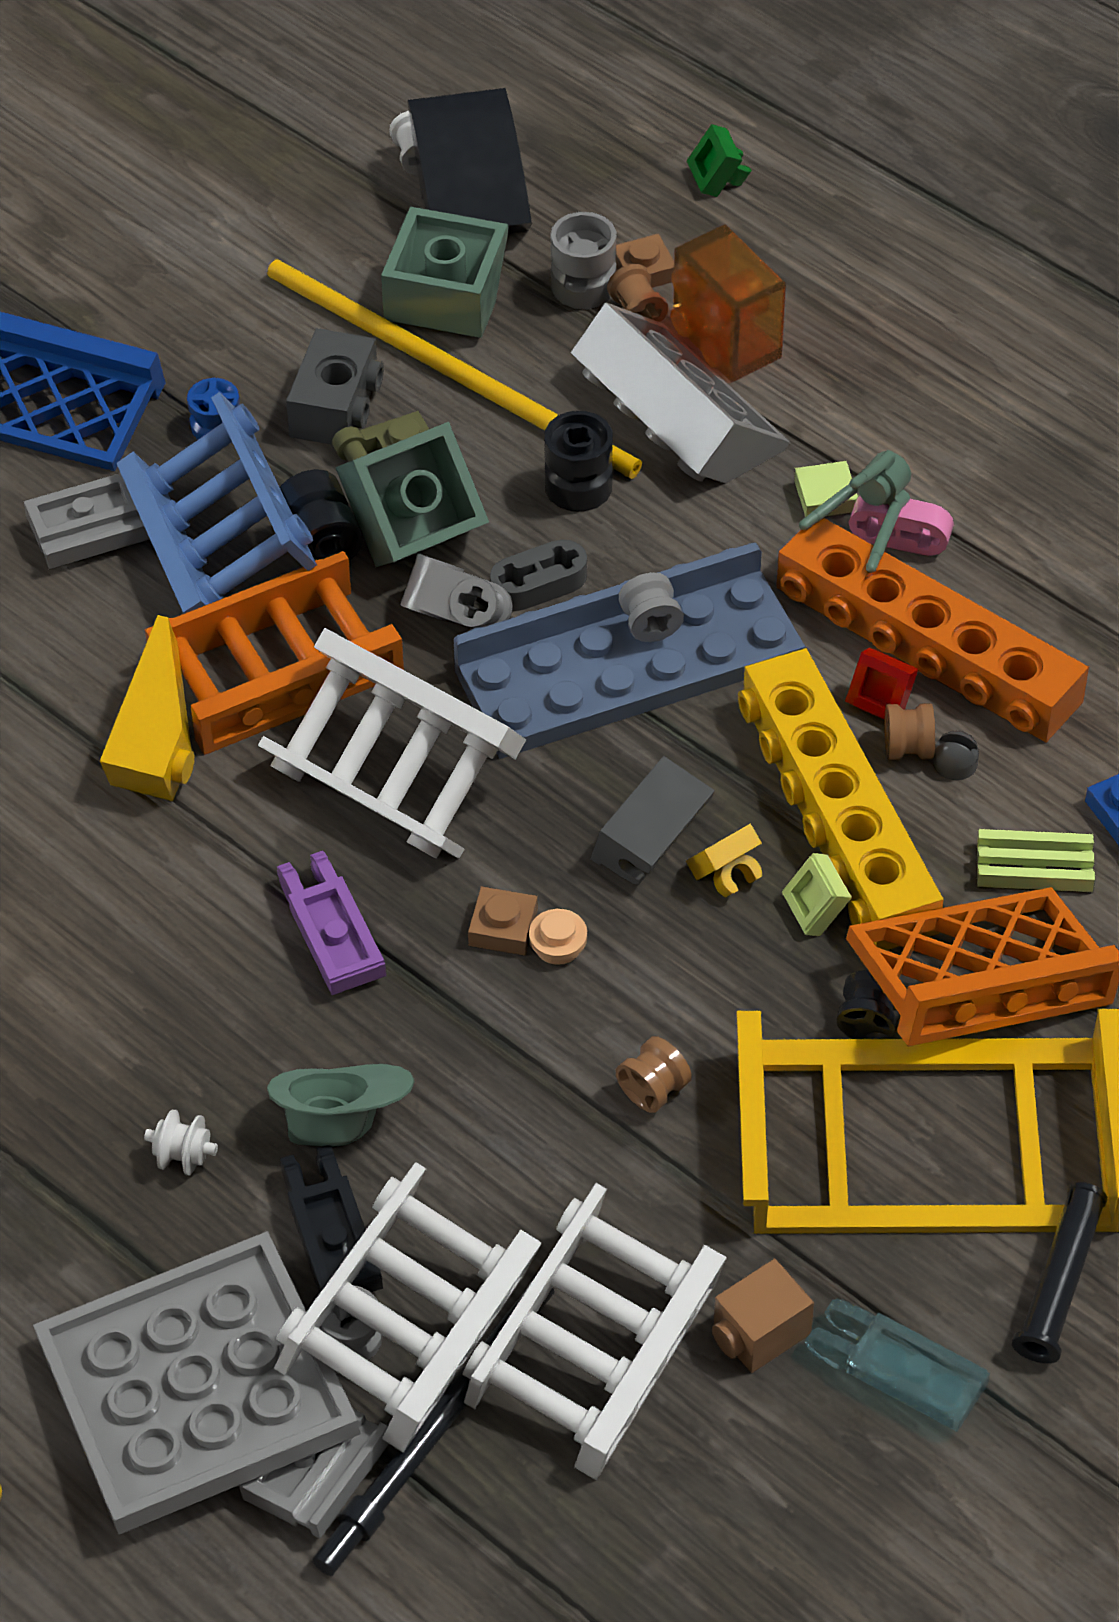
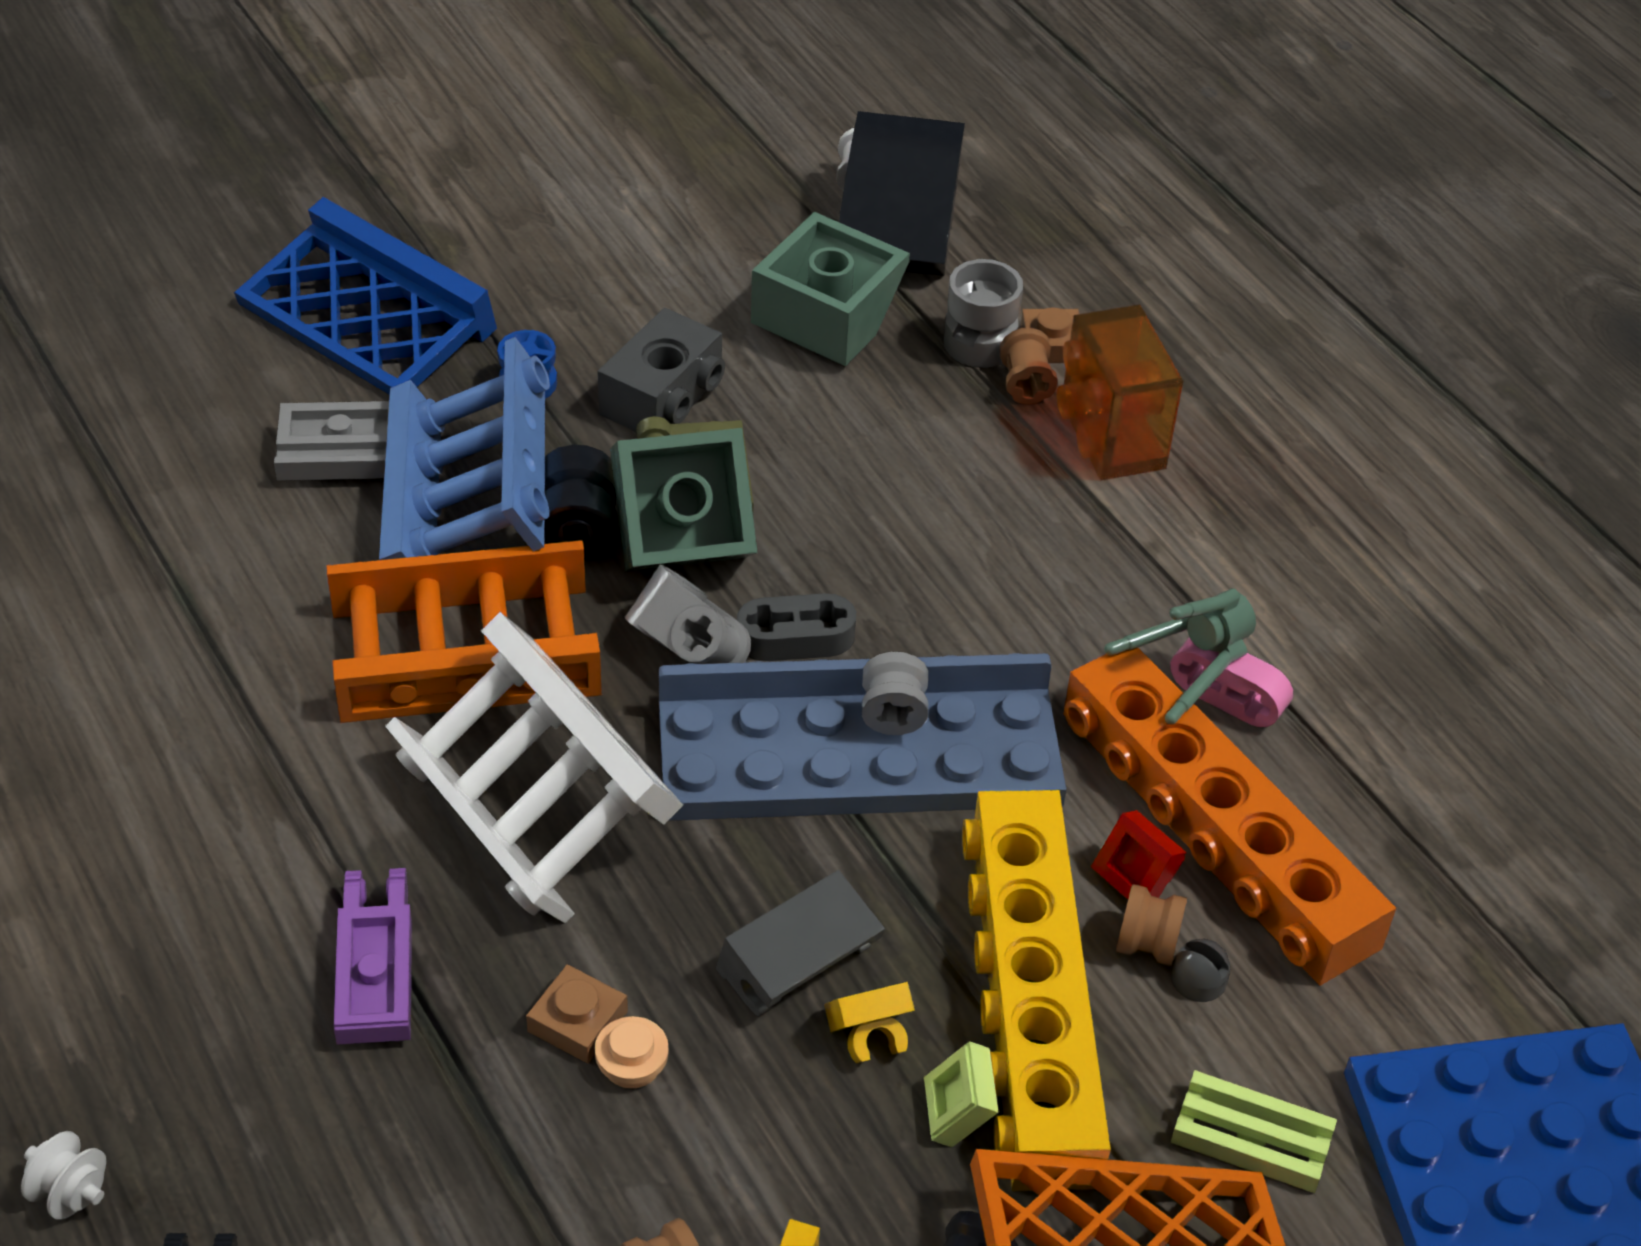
camera: 15 degrees right, 5 degrees down
(151, 735) = (286, 671): yellow slope -> none
(336, 1103) = (262, 1182): sand green piece -> none
(430, 355) = (810, 396): yellow piece -> none
(578, 460) = (888, 514): black wheel -> none
(675, 396) = (1029, 477): slope -> none
(717, 162) = (1170, 254): green tile -> none
(820, 482) = (1152, 608): yellowish green tile -> none

